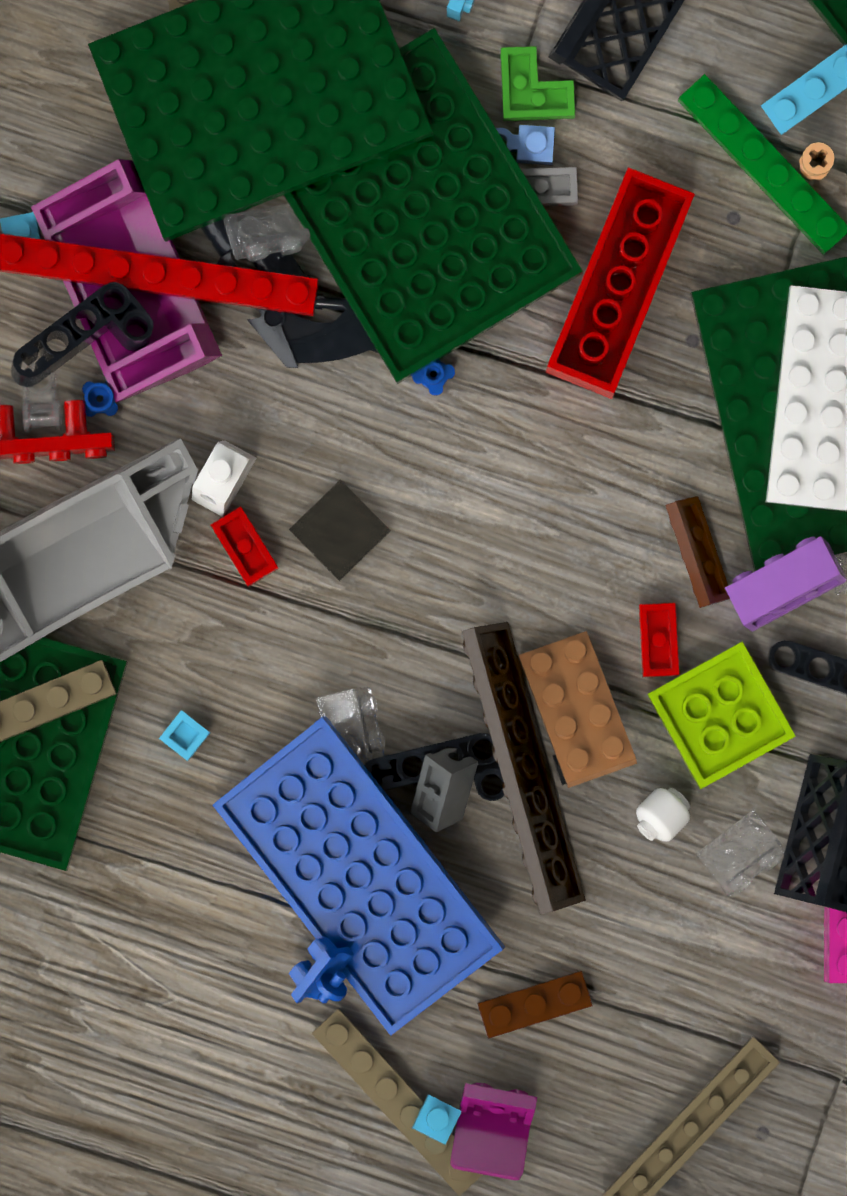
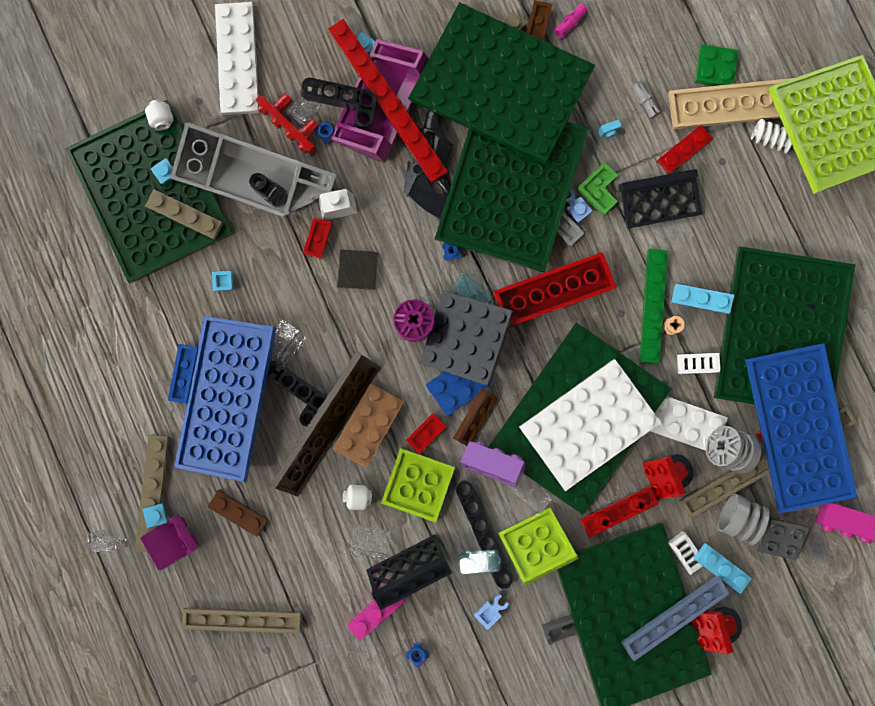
camera: 50 degrees right, 0 degrees up
(116, 553) = (269, 191): none -> black piece
(264, 232) = (447, 134): clear bracket -> none
(268, 907) = (182, 373): none -> blue plate
(325, 977) = (174, 417): blue hips -> none
(443, 789) = (288, 400): dark grey hinge -> none
(470, 527) = (412, 332): none -> magenta wheel
(517, 398) = (468, 288): none -> clear light blue plate
(577, 463) = (467, 338): none -> black plate
(630, 532) = (453, 391): none -> blue plate

